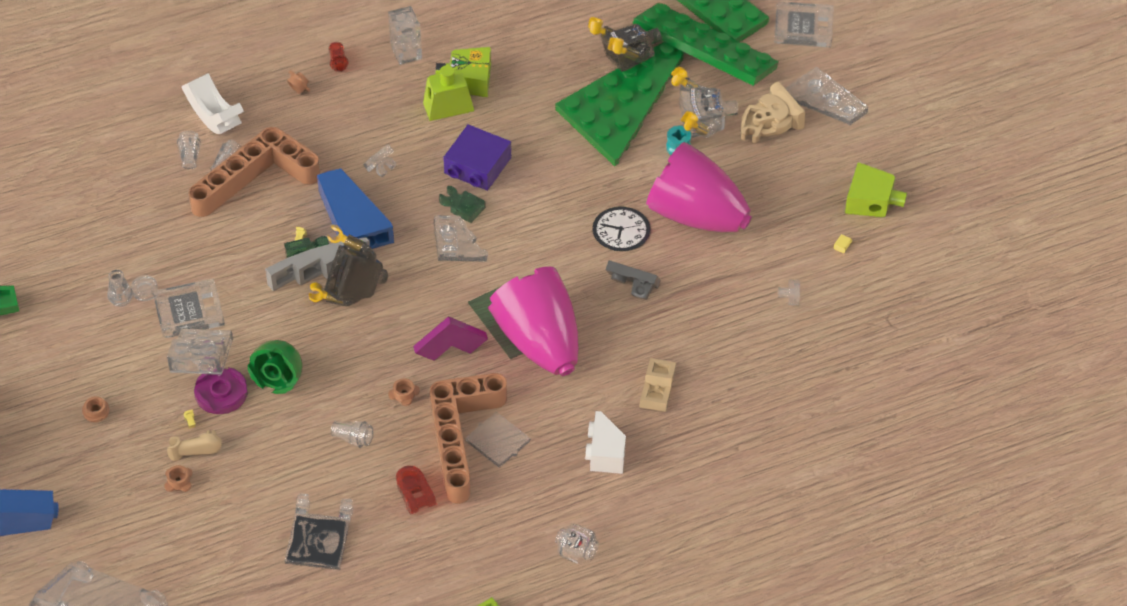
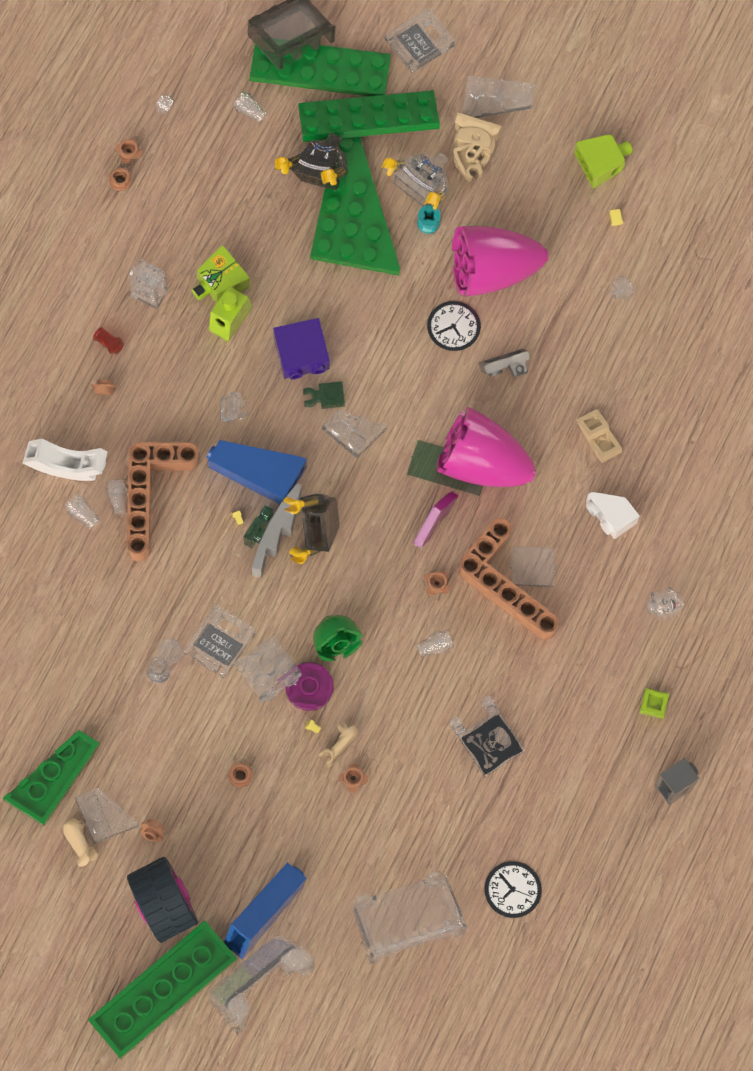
camera: 45 degrees left, 20 degrees up
(410, 481) = (510, 647): clear red plate -> none

